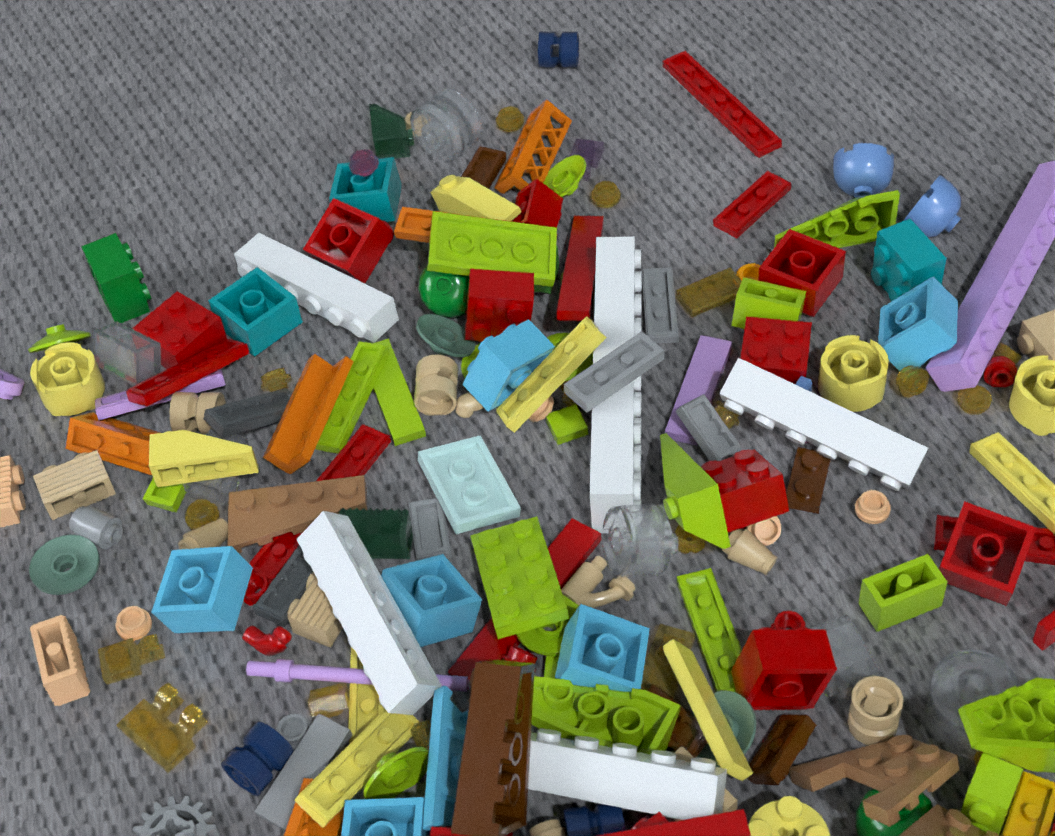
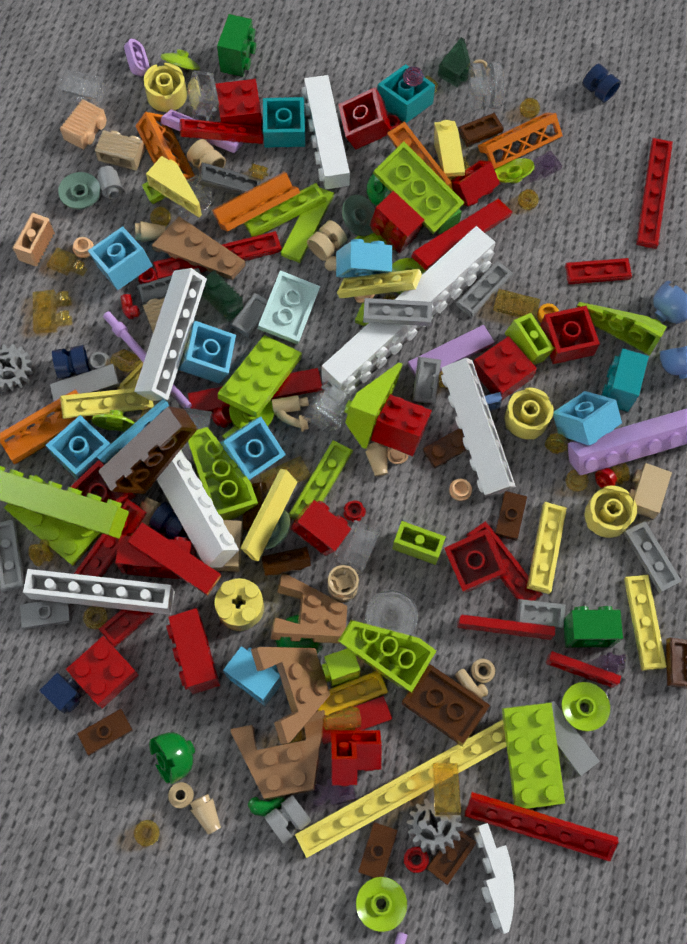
camera: 35 degrees right, 20 degrees up
(951, 485) = (510, 515): none -> reddish brown plate

